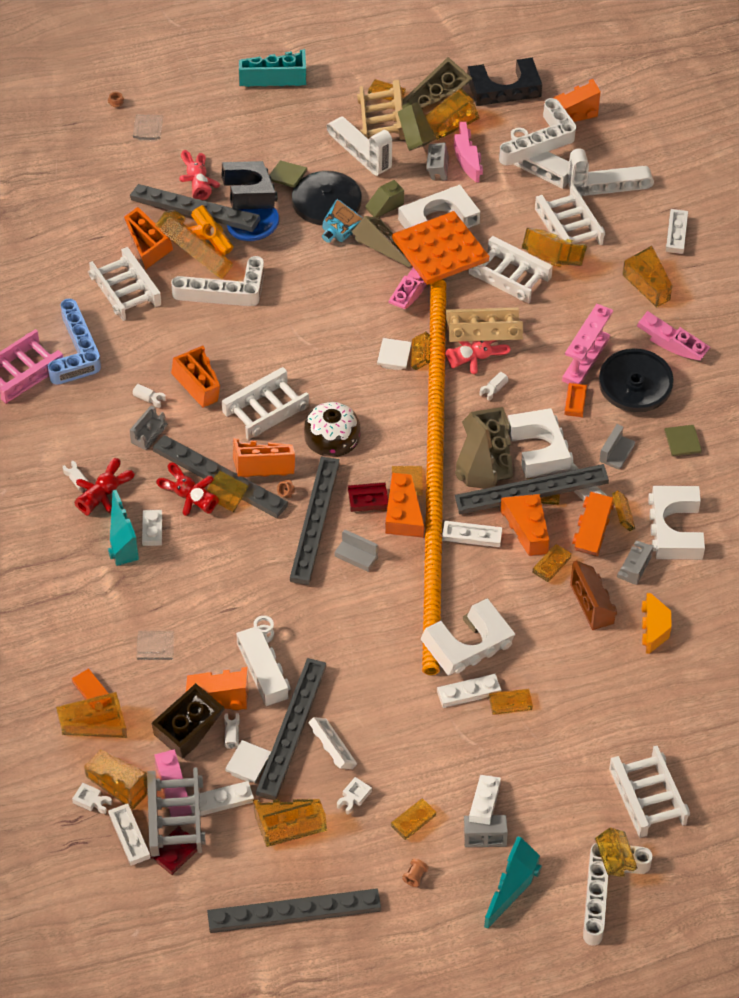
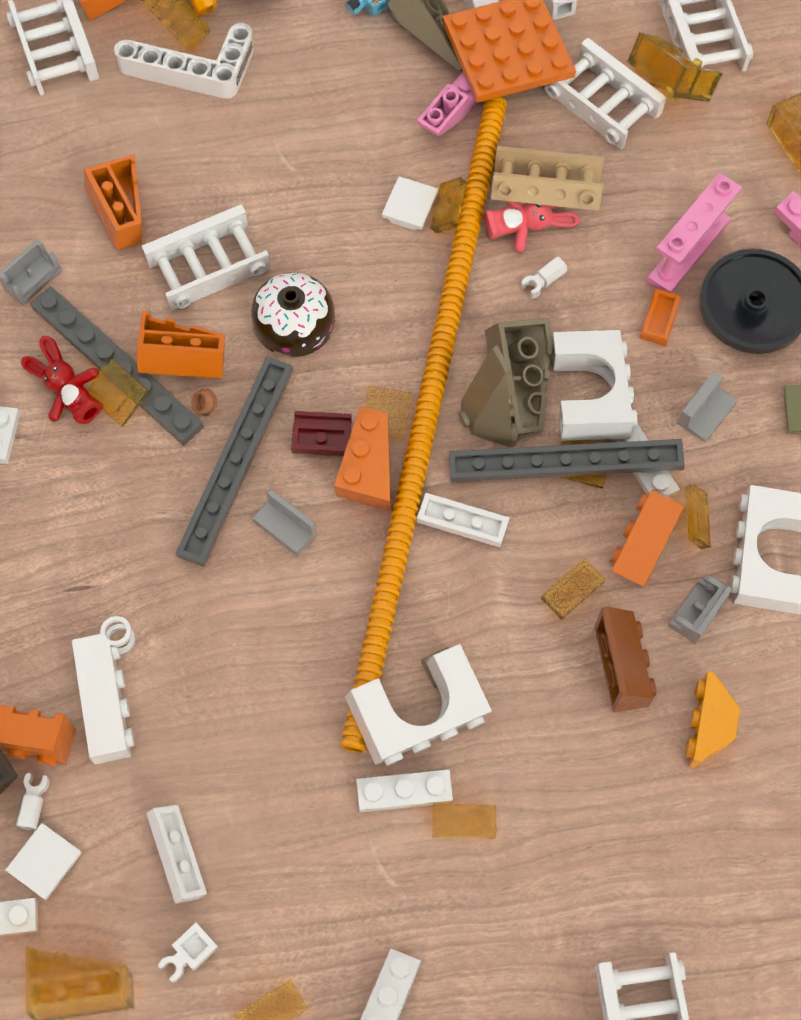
camera: 10 degrees right, 15 degrees up
(148, 395) = (44, 218): white bar -> none
(291, 729) = (119, 817): dark grey plate -> none
(528, 521) = (550, 513): orange wedge -> none

